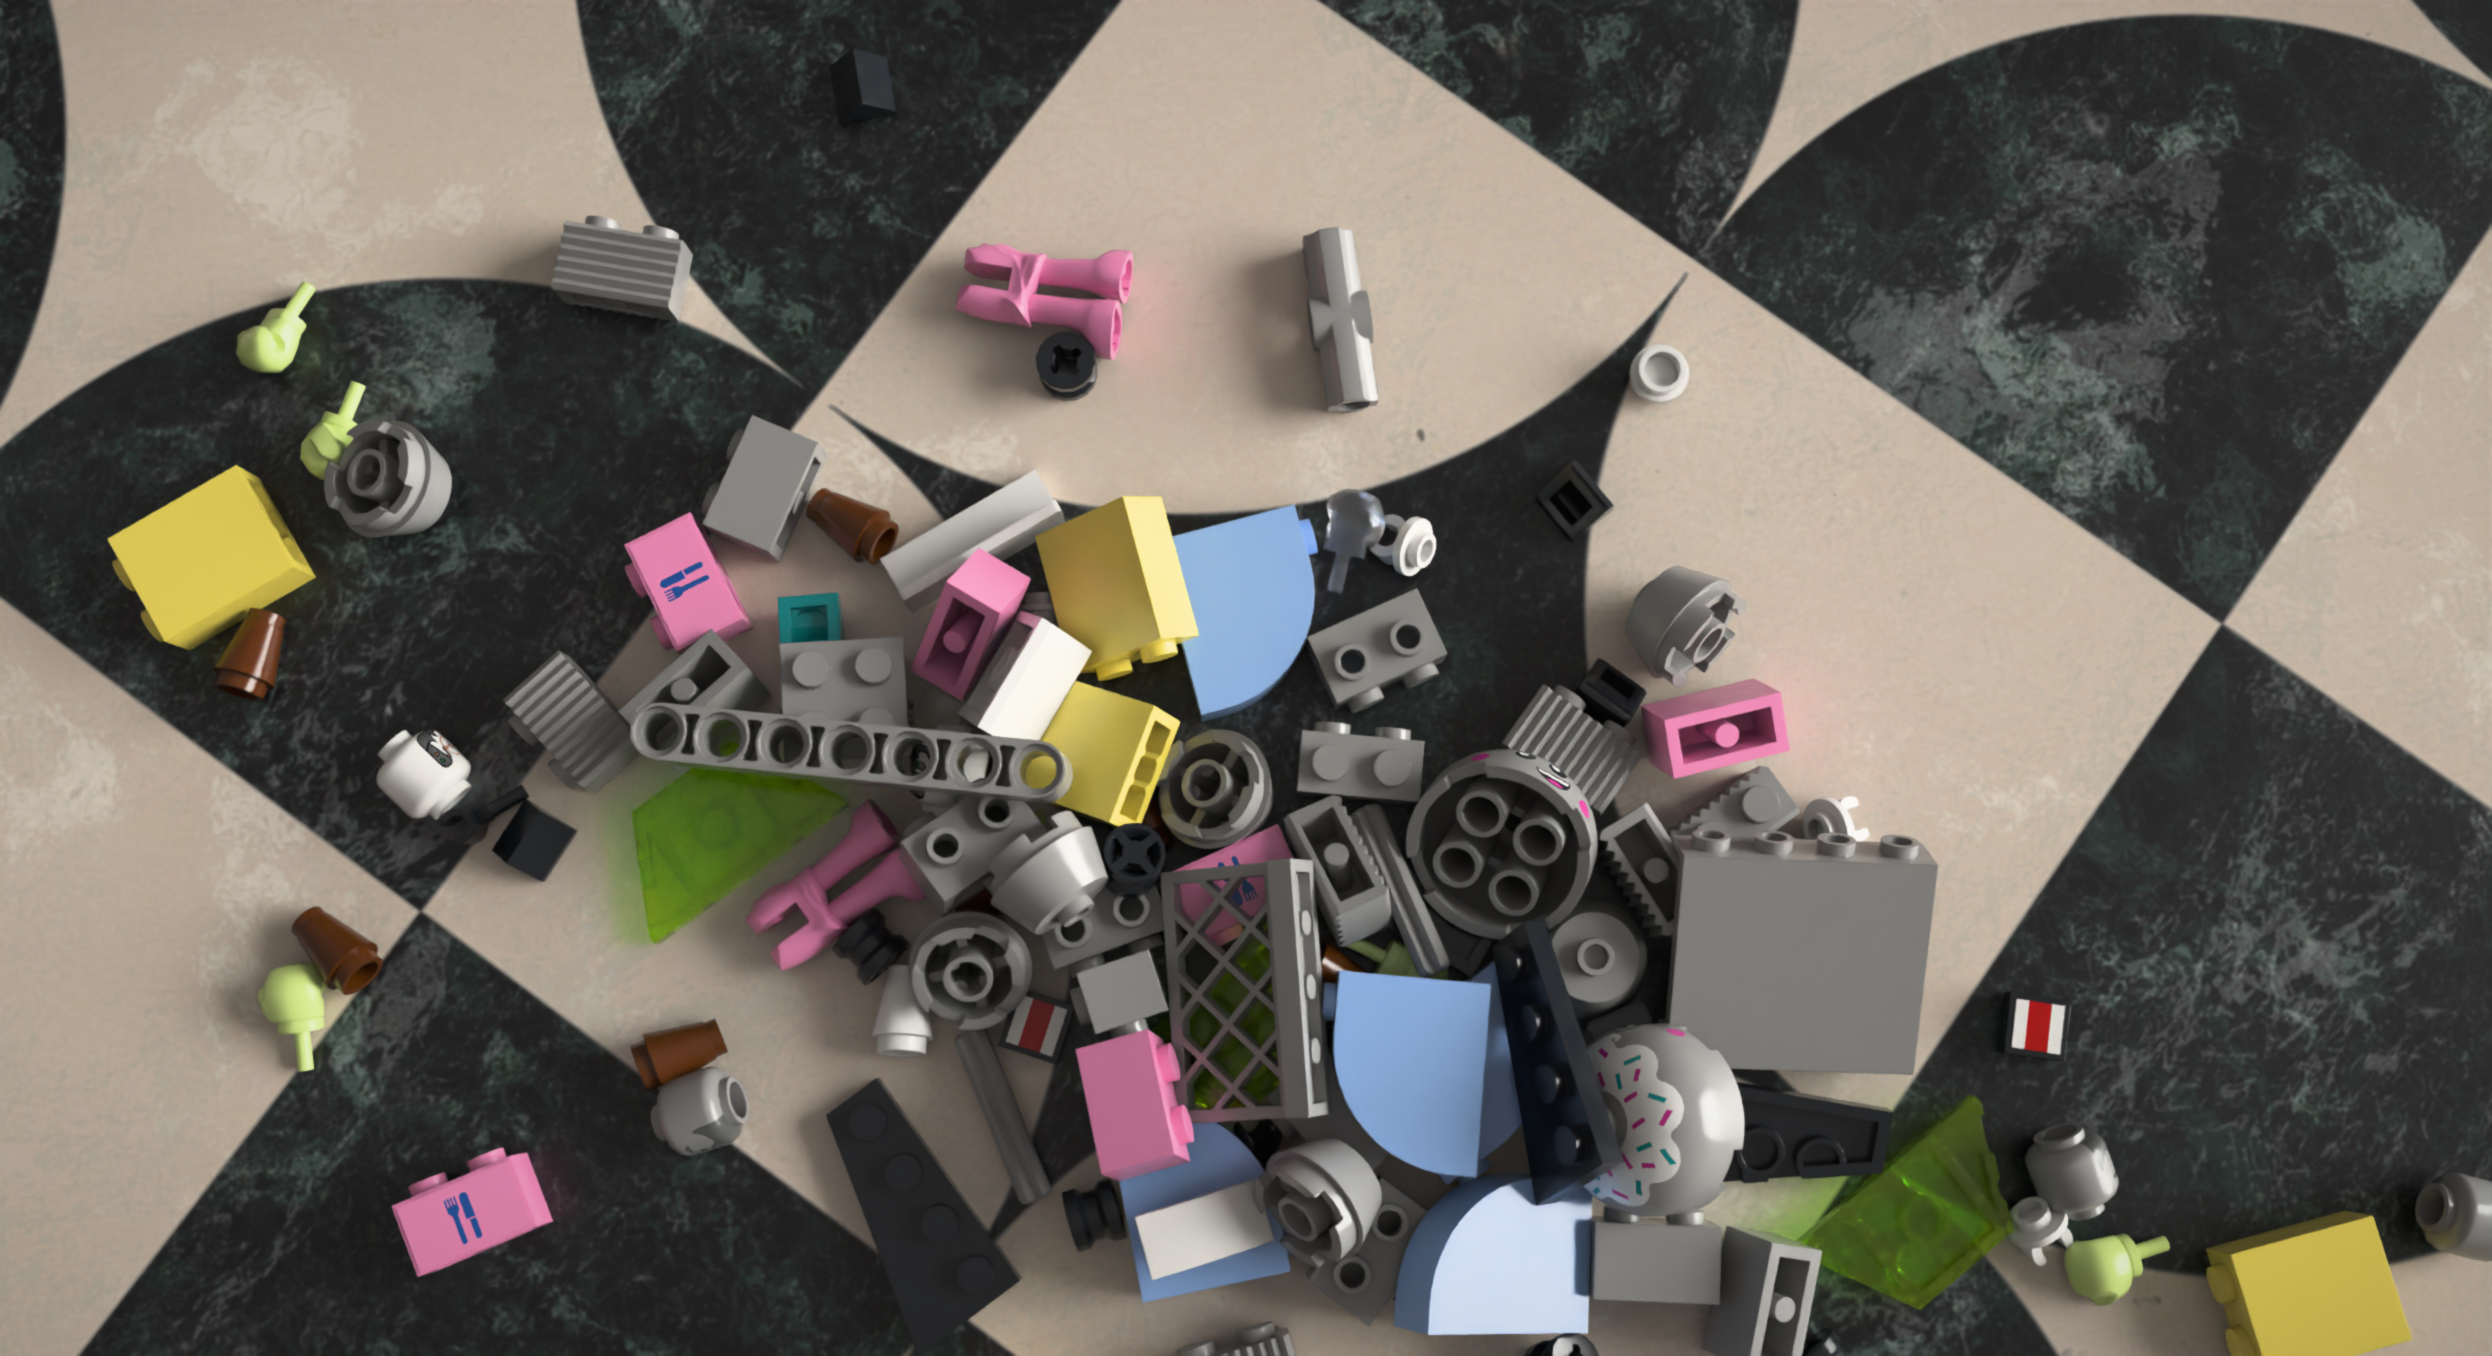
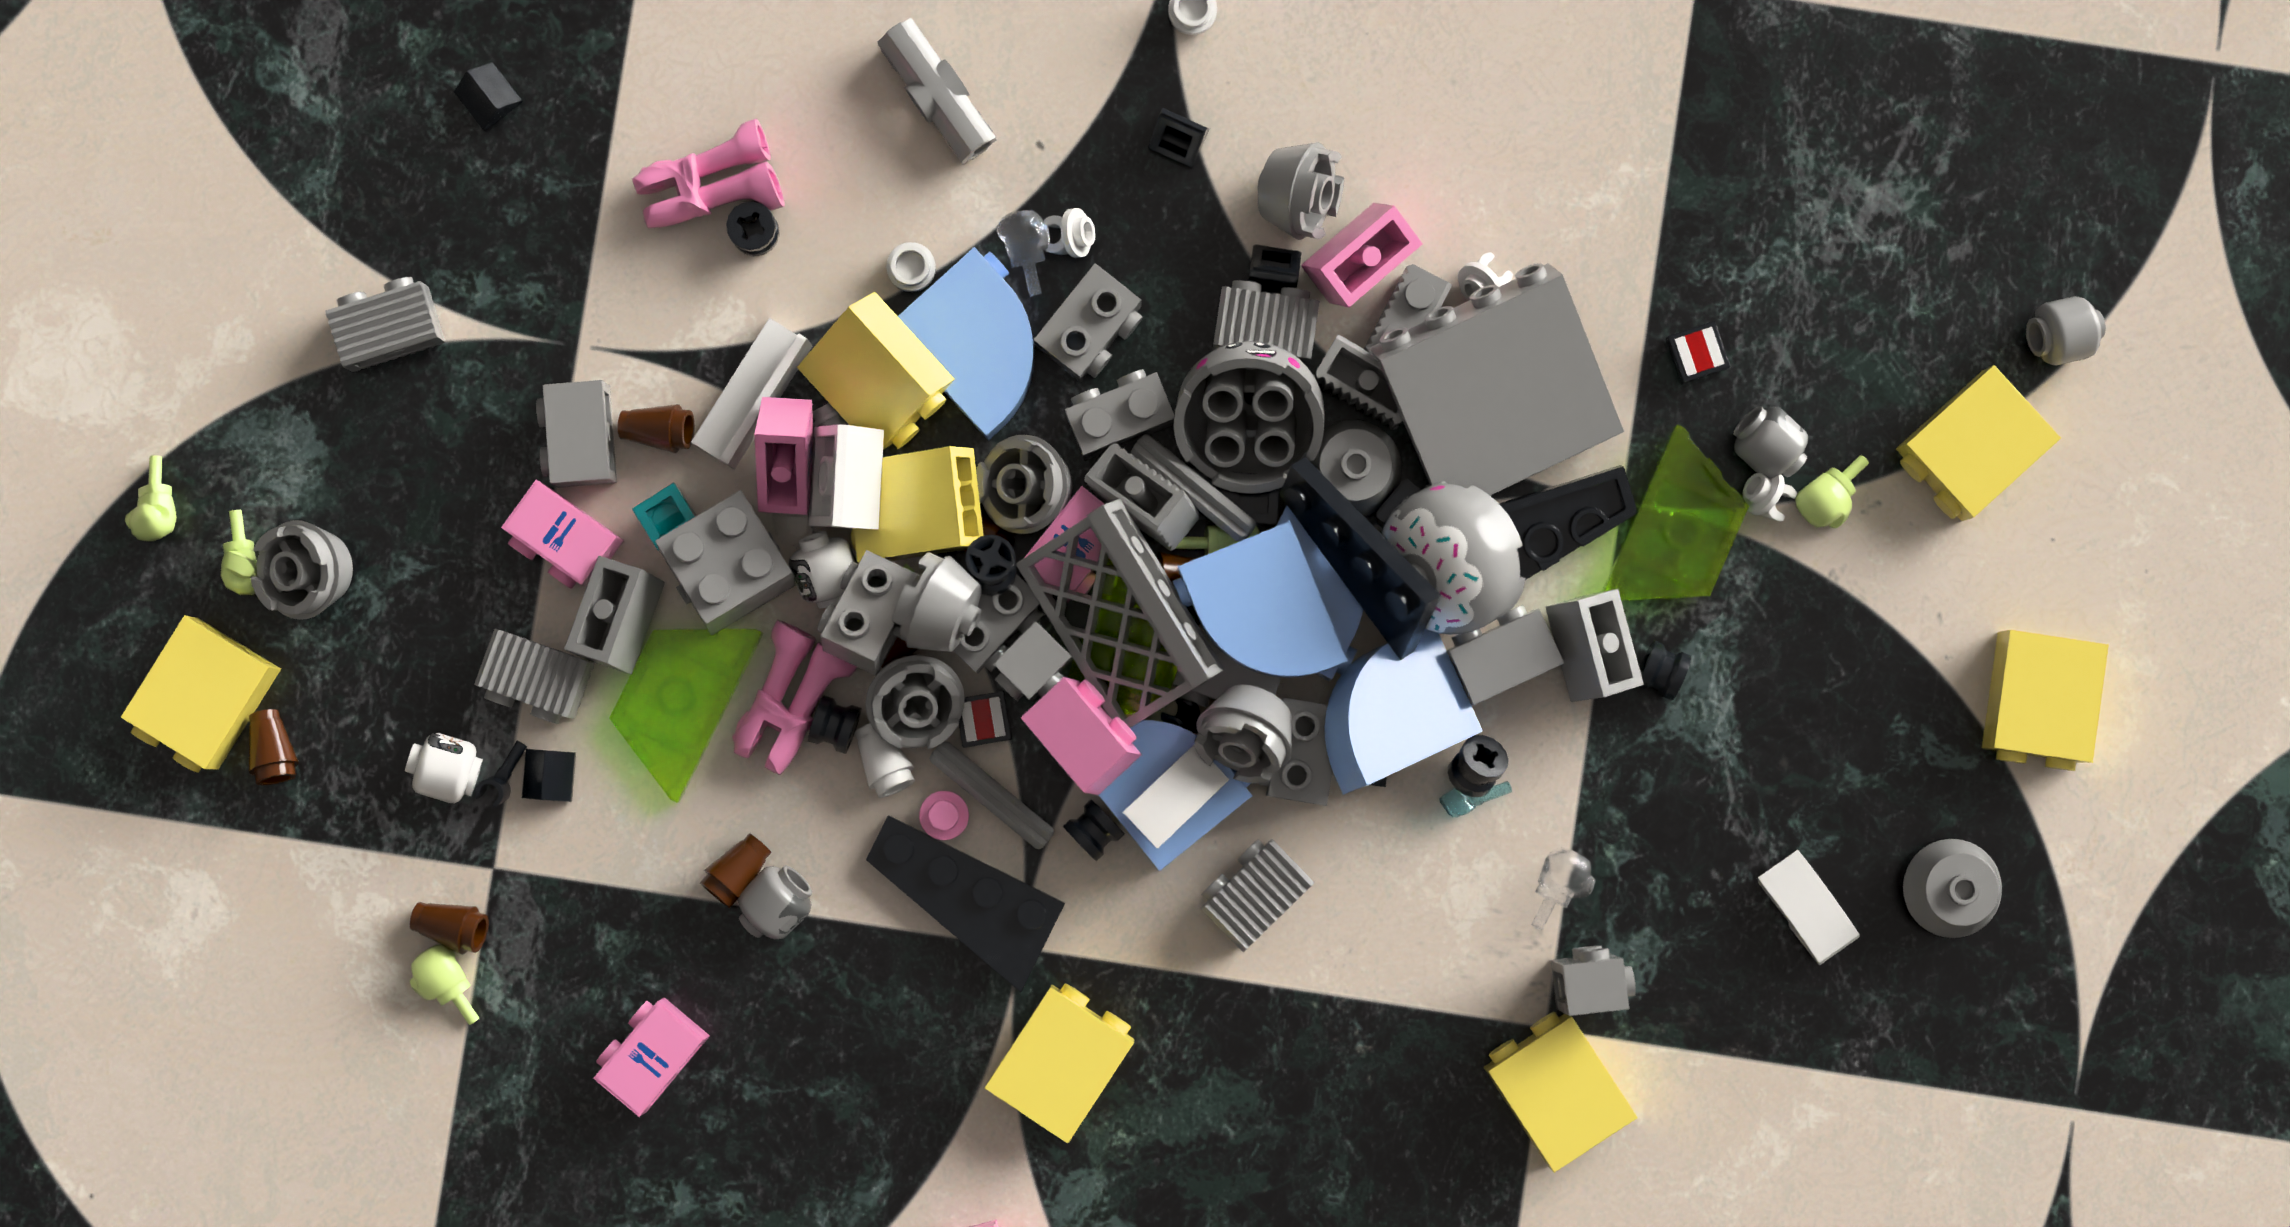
camera: 25 degrees left, 5 degrees up
(824, 739) = (727, 590): light grey beam -> none
(938, 1110) = (944, 815): none -> bright pink plate
(1215, 493) = (911, 267): none -> white plate

